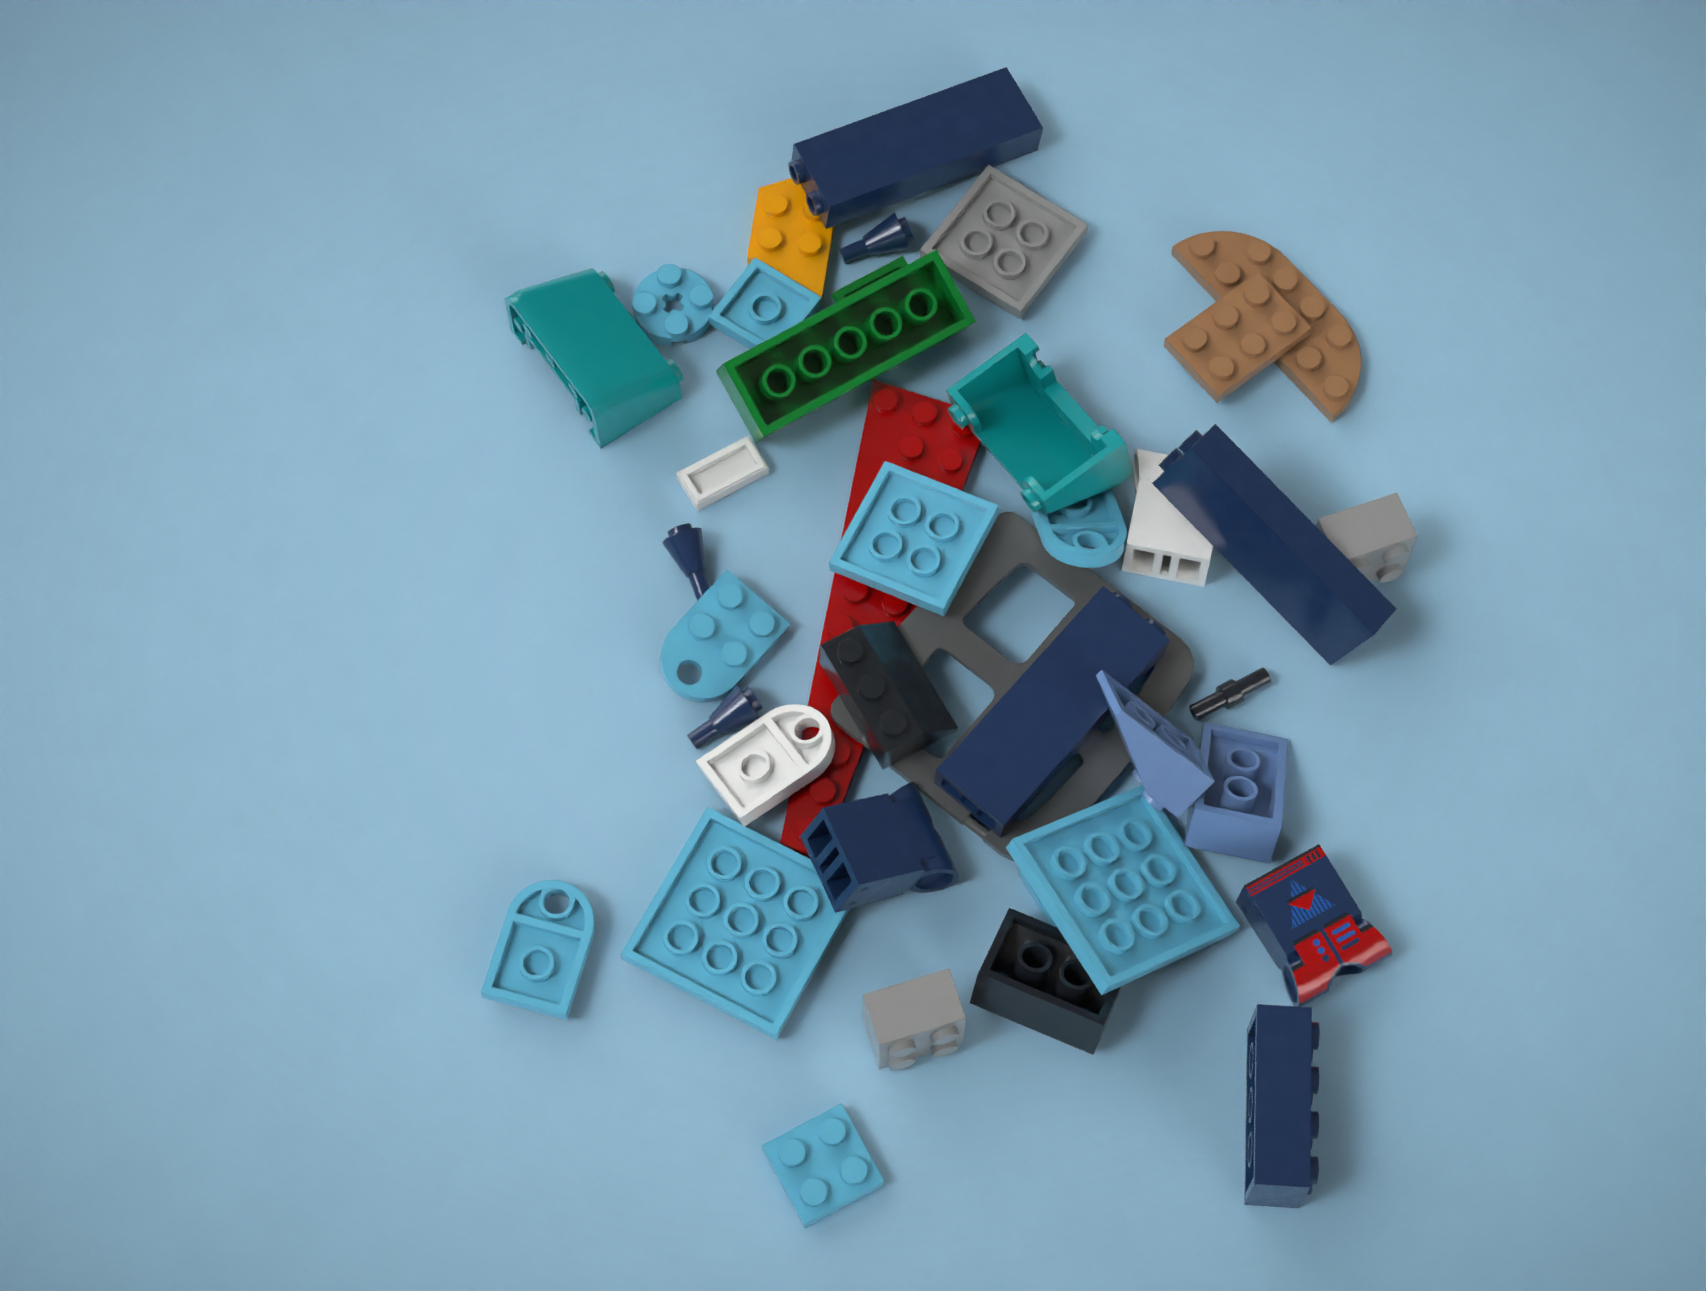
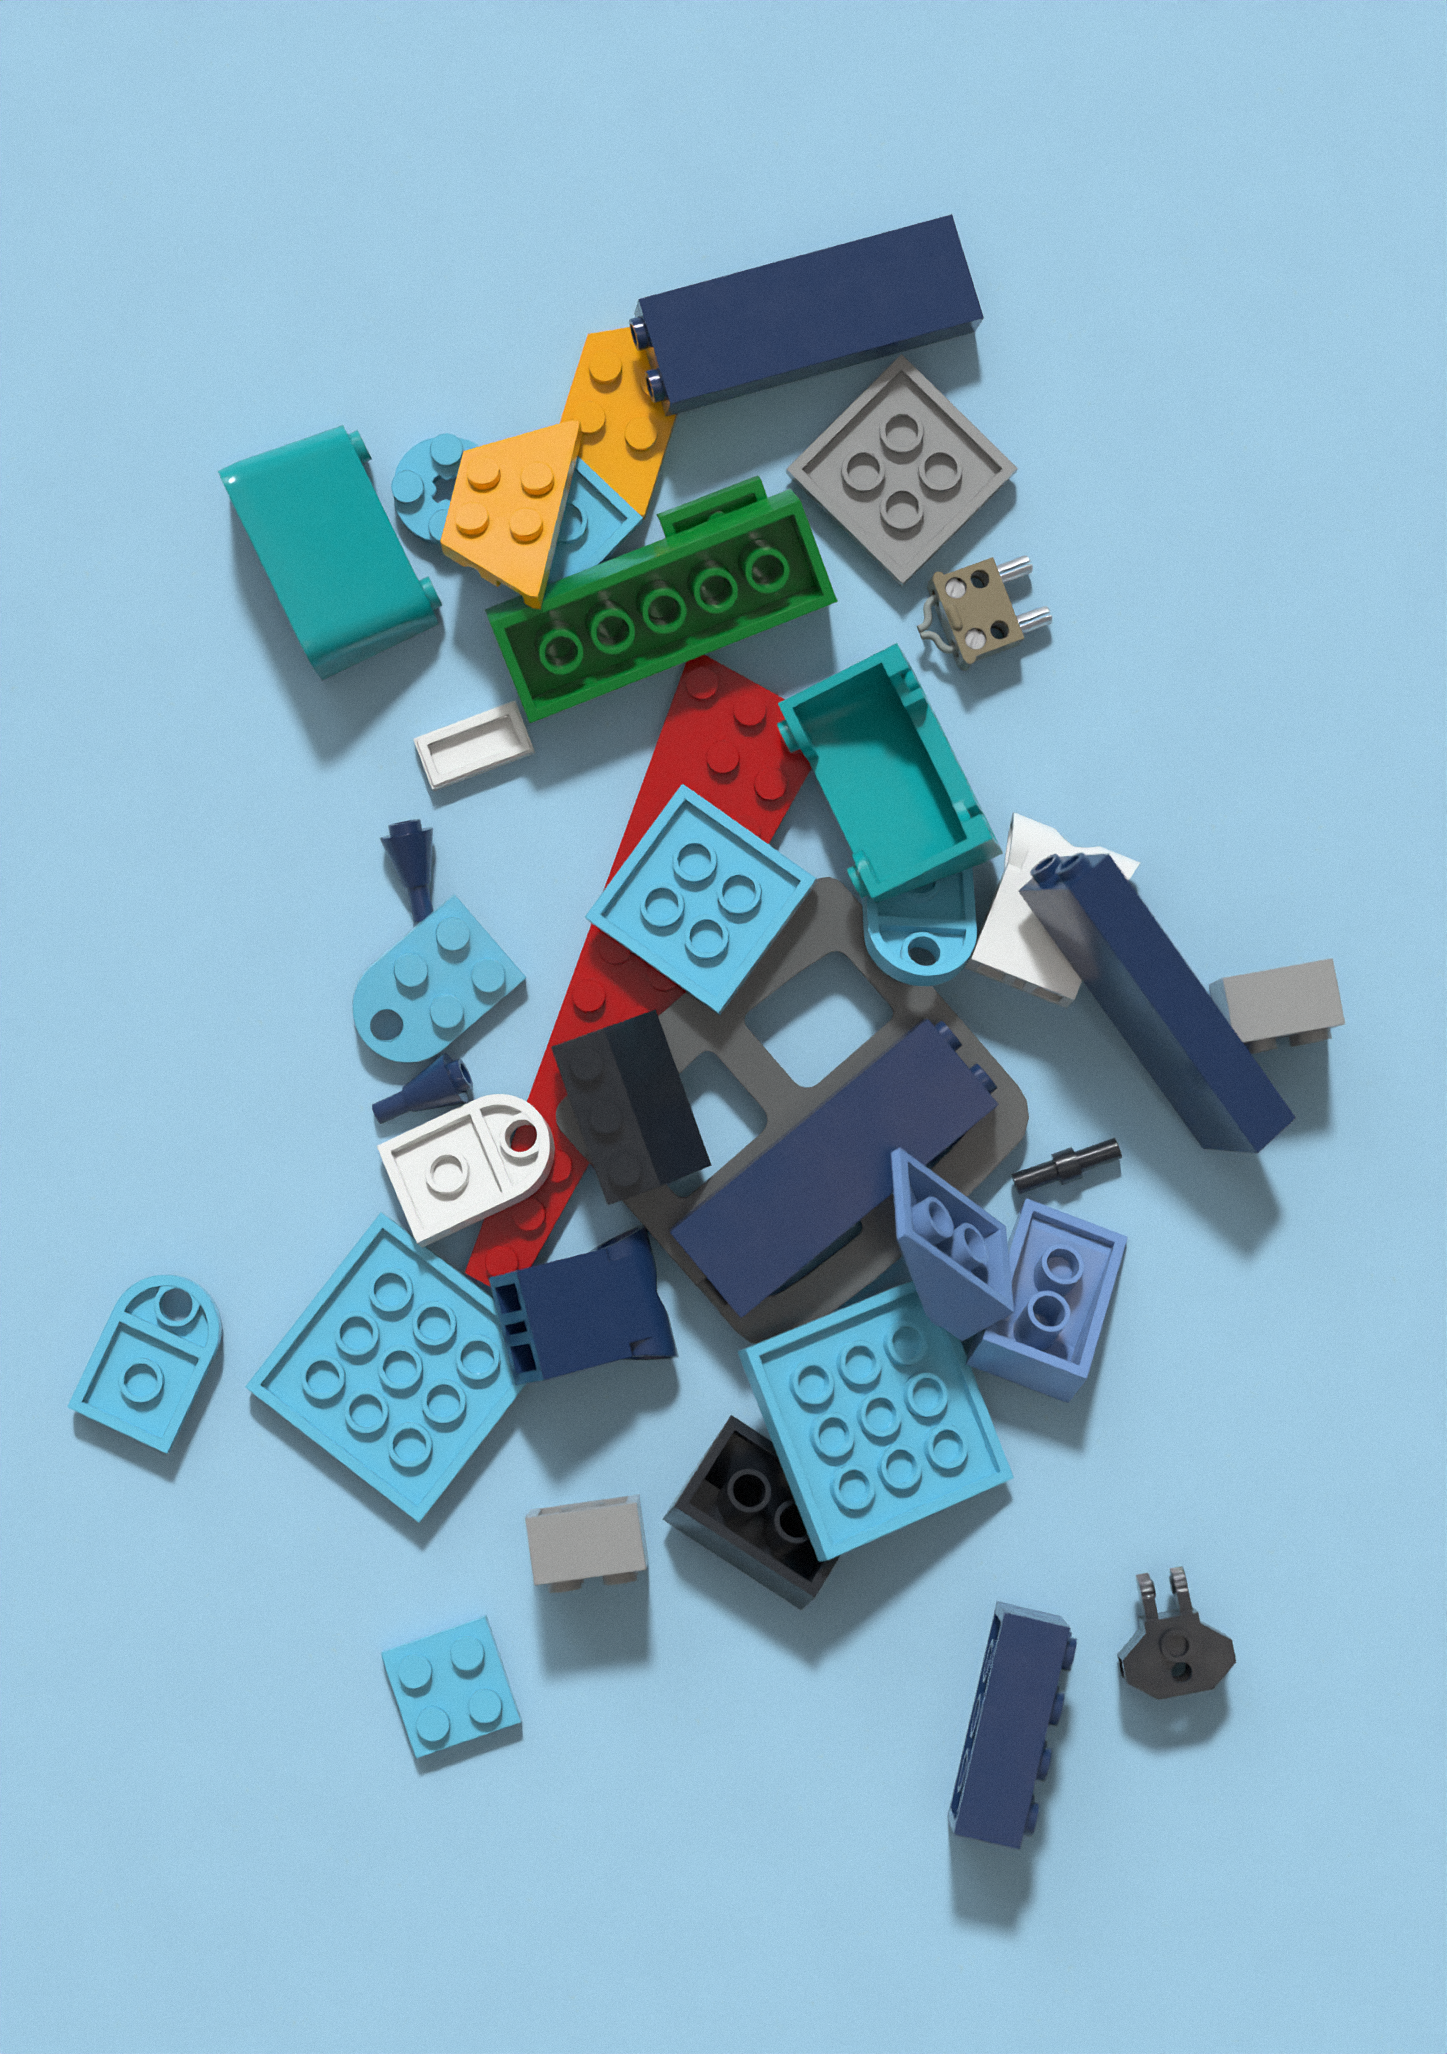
camera: 10 degrees right, 20 degrees up
(725, 294) = (512, 507): none -> light orange wing
(886, 237) = (744, 439): dark blue cone -> none
(1080, 323) = (971, 612): none -> dark tan piece
(1262, 317) = (1226, 645): medium nougat plate -> none
(1310, 925) = (1099, 1495): piece -> none
(1395, 1024) = (1173, 1639): none -> black hinge

